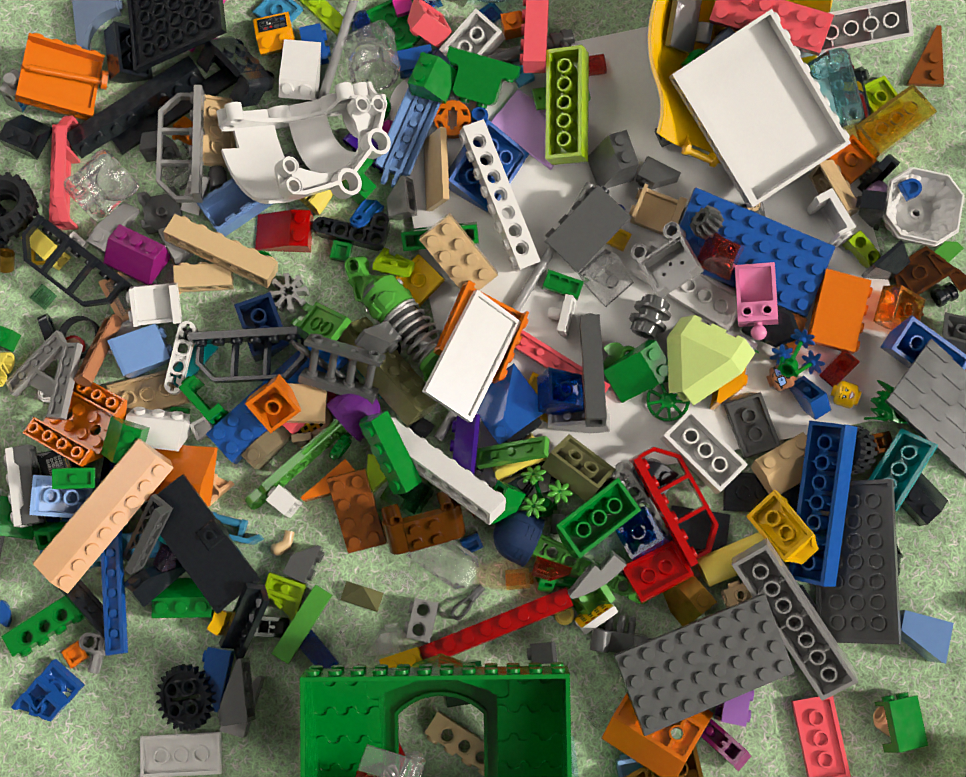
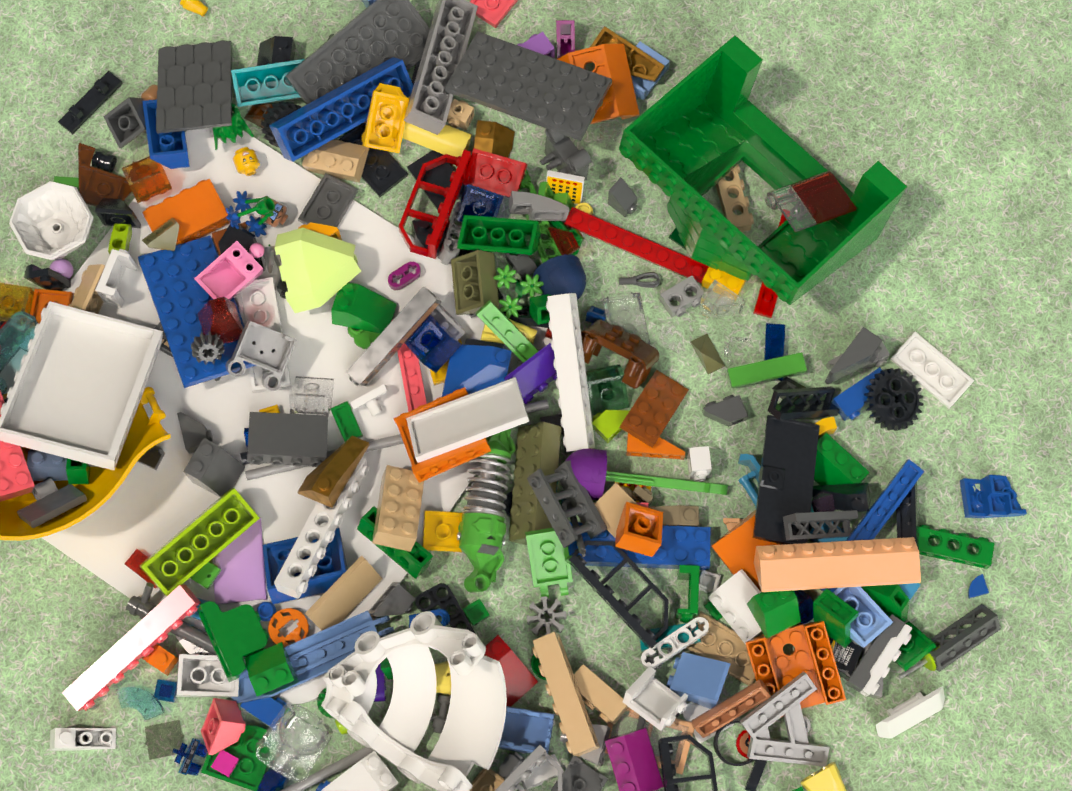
camera: 135 degrees left, 5 degrees down
(74, 655) = (948, 508): orange tile -> none
(97, 651) = (929, 492): light grey beam -> none
(260, 313) = (589, 613): dark blue slope -> none
(284, 545) = (728, 438): tan arm -> none
(285, 593) = (756, 404): lime wing -> none
(341, 446) = (621, 464): green gear -> none
(379, 338) = (517, 501): dark grey slope -> none
(390, 452) = (592, 411): green slope -> none
(393, 264) = (449, 557): lime wing -> none
(518, 579) = (591, 260): clear orange brick -> none
(527, 228) = (331, 476): none -> pearl gold wedge
(643, 429) = (406, 279): none -> magenta beam
(651, 313) = (314, 335): dark grey piece -> none
(655, 210) = (222, 406): tan panel -> none
(667, 401) = (366, 274): green wheel -> none
(704, 451) = (380, 216): white brick -> none
(810, 397) = (271, 180): blue slope -> none
(834, 275) = (164, 236): none -> olive slope
(839, 368) = (230, 182): clear red slope -> none
(871, 207) = (83, 253): black slope -> none
(910, 188) = (43, 241): blue tile -> none

